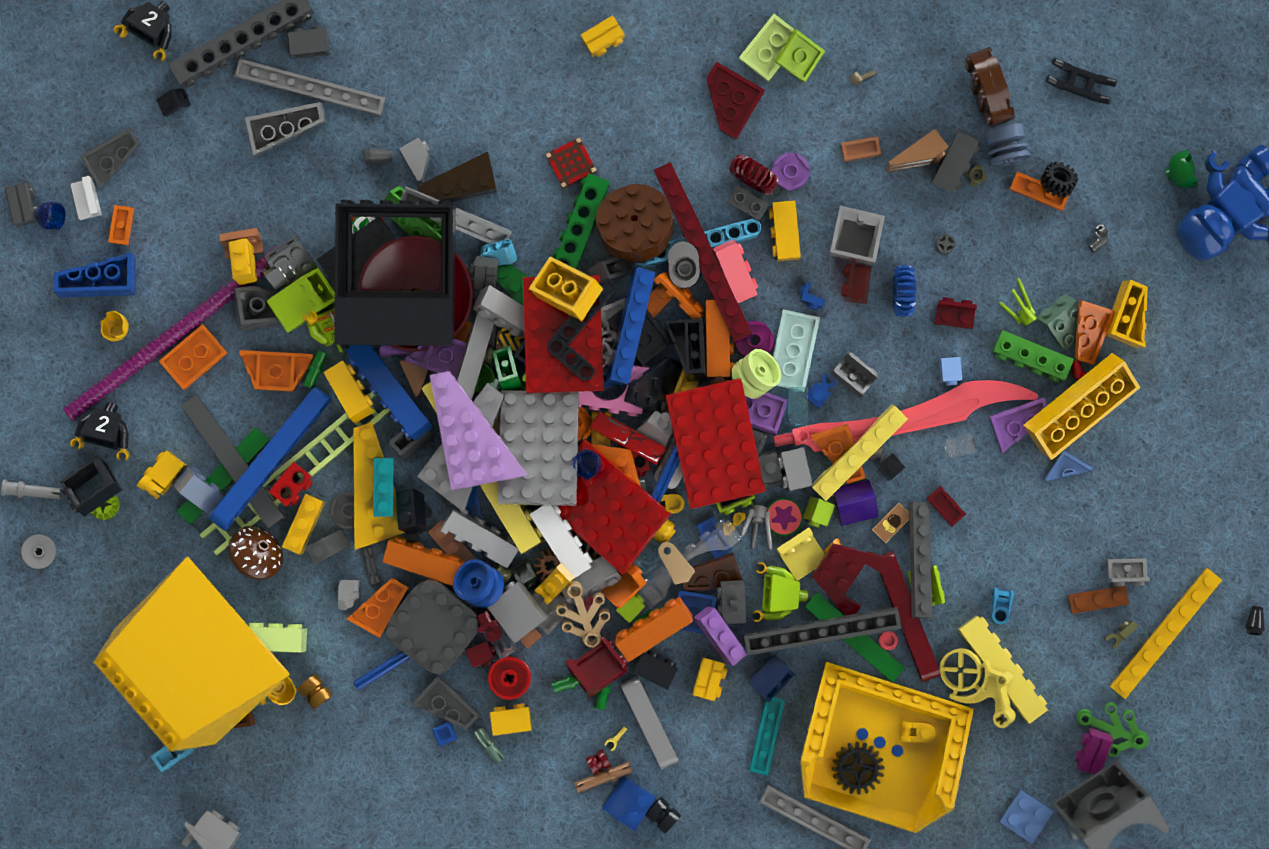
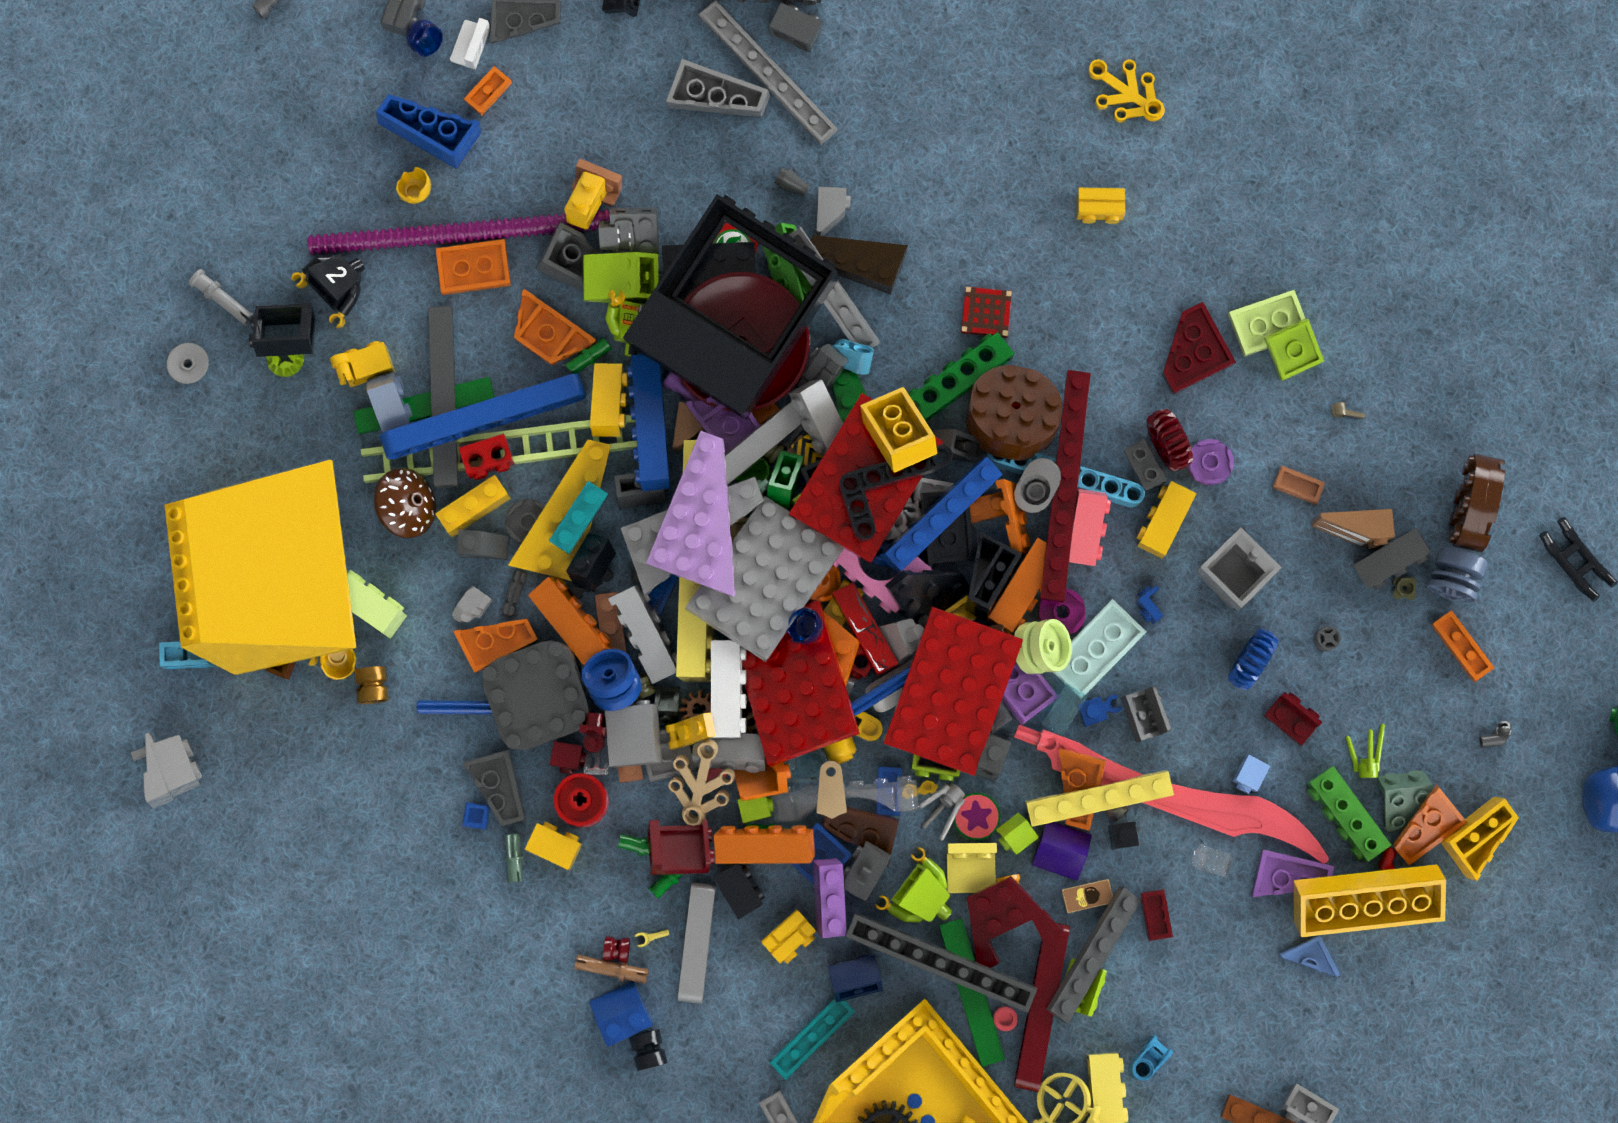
camera: 30 degrees right, 5 degrees down
(795, 470) = (1019, 773): light grey brick -> none
(857, 282) = (1208, 621): clear red bracket -> none
(1055, 186) = (1491, 646): black tyre -> none

